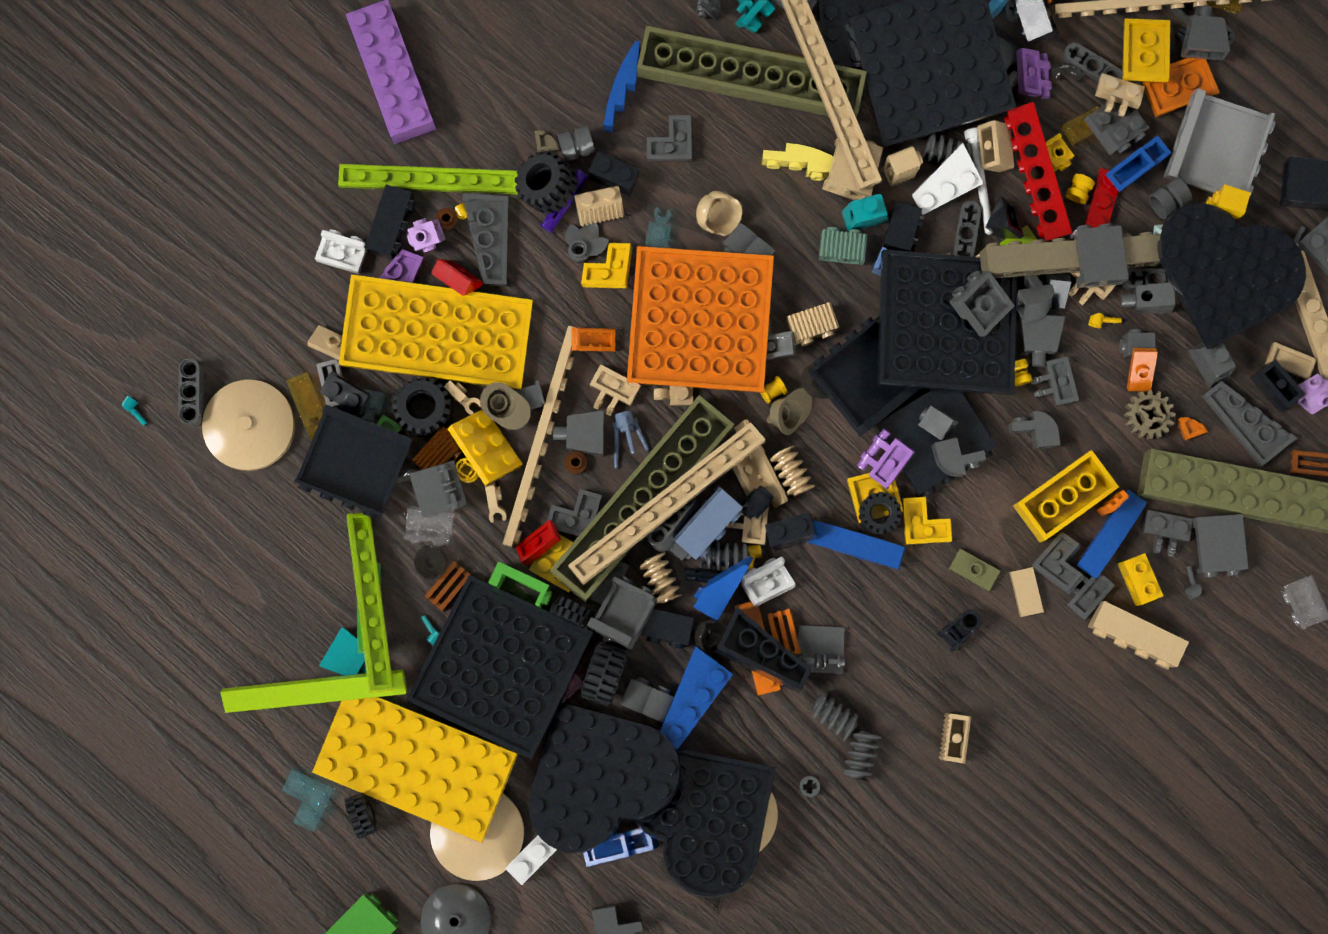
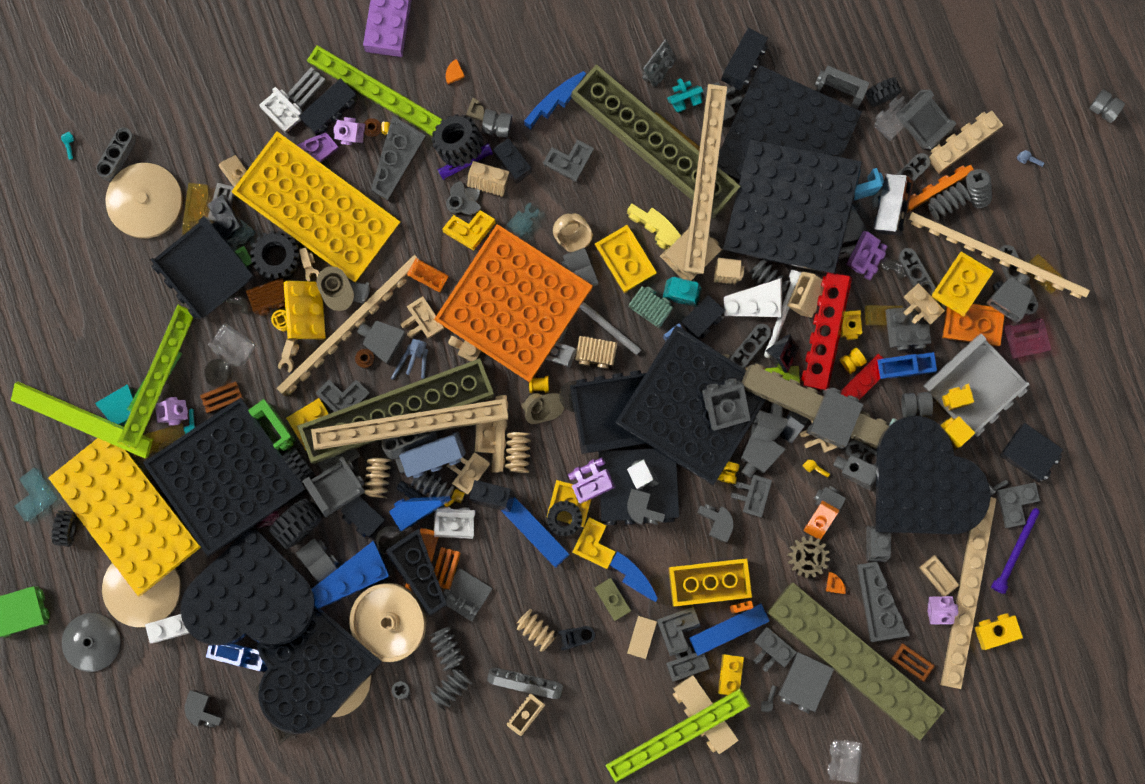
camera: 30 degrees right, 0 degrees up
(349, 195) = (307, 75): none -> light grey tile
(405, 629) = (171, 411): none -> lavender brick
(413, 660) = (164, 437): none -> clear yellow plate
(438, 489) = (252, 322): dark grey hinge -> none
(456, 276) = (353, 174): red slope -> none
(500, 115) = (454, 72): none -> orange tile
(538, 543) = (303, 402): red plate -> none
(756, 502) = (477, 460): black brick -> none
(758, 721) = (388, 621): none -> tan dish
(788, 211) = (625, 258): none -> yellow plate
(813, 292) = (611, 329): none -> light grey bar
(915, 645) = (536, 630): none -> tan piece
(934, 706) = (525, 683): none -> dark grey beam
(983, 534) = (634, 577): none -> blue slope
(1124, 671) = (678, 735): none -> lime tile
(1209, 167) = (958, 398): none -> yellow brick
(1247, 75) = (1029, 344): none -> clear pink plate
(1277, 385) = (916, 588): black brick -> none

